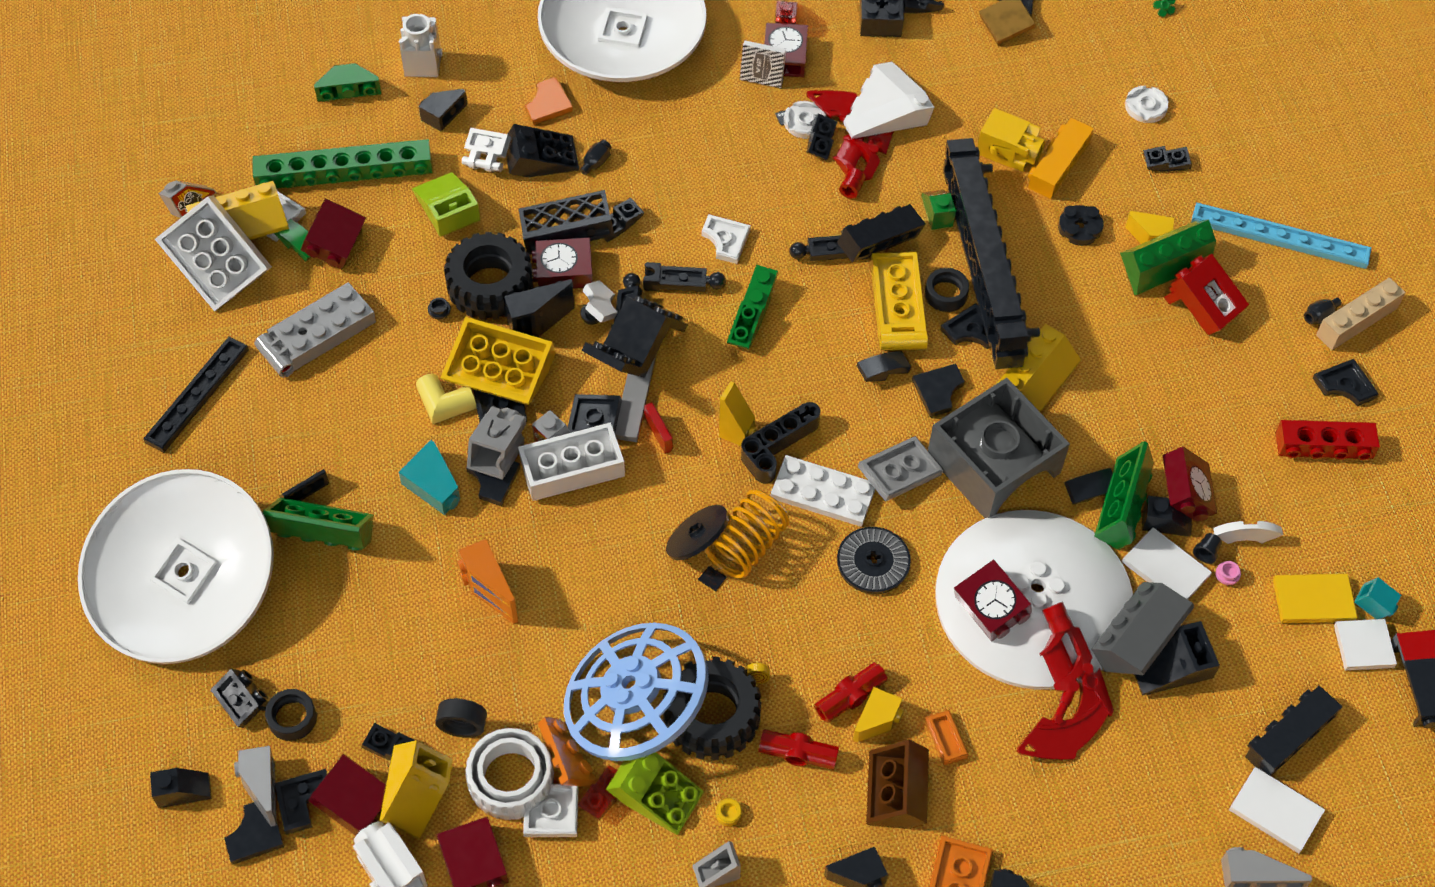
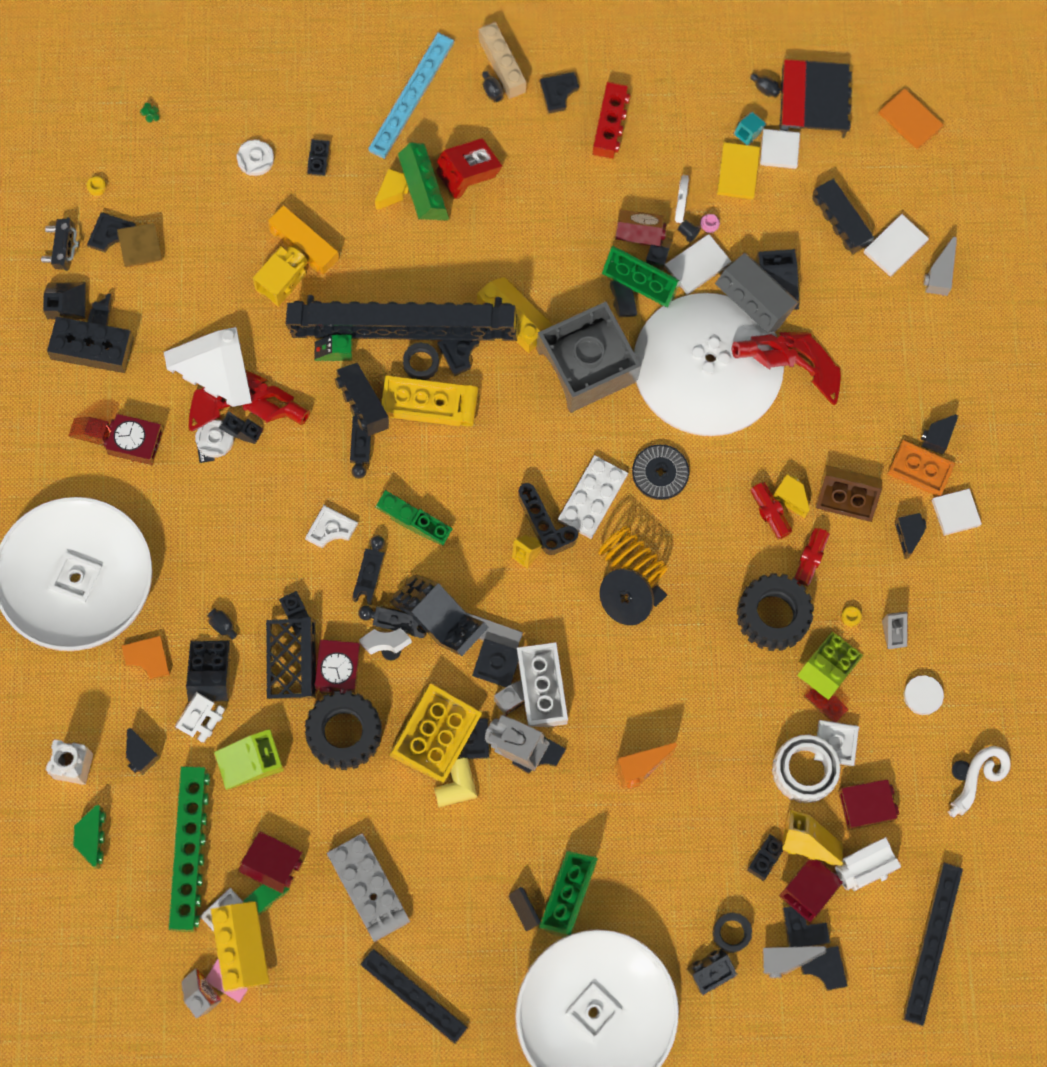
camera: 85 degrees left, 15 degrees up
(179, 786) = (782, 1022): black slope -> none
(213, 252) = (280, 967): white slope -> none
(431, 479) = (536, 801): teal slope -> none
(439, 308) = (363, 779): black plate -> none
(461, 717) = (758, 799): black tyre -> none
(539, 308) = (392, 704): black slope -> none
(567, 756) = (792, 724): orange wing -> none
(640, 695) = (767, 655): light blue dish -> none
(658, 428) = (517, 613): red tile -> none
(759, 671) = (746, 575): yellow tile -> none
(762, 64) = (154, 460): tile -> none
(880, 366) = (487, 426): black slope -> none
(900, 468) = (585, 434): light grey tile -> none
(937, 388) = (512, 391): black tile -> none
(946, 737) = (813, 452): orange tile -> none
(993, 600) = (722, 390): dark red brick -> none
(1083, 214) = (378, 250): black plate -> none

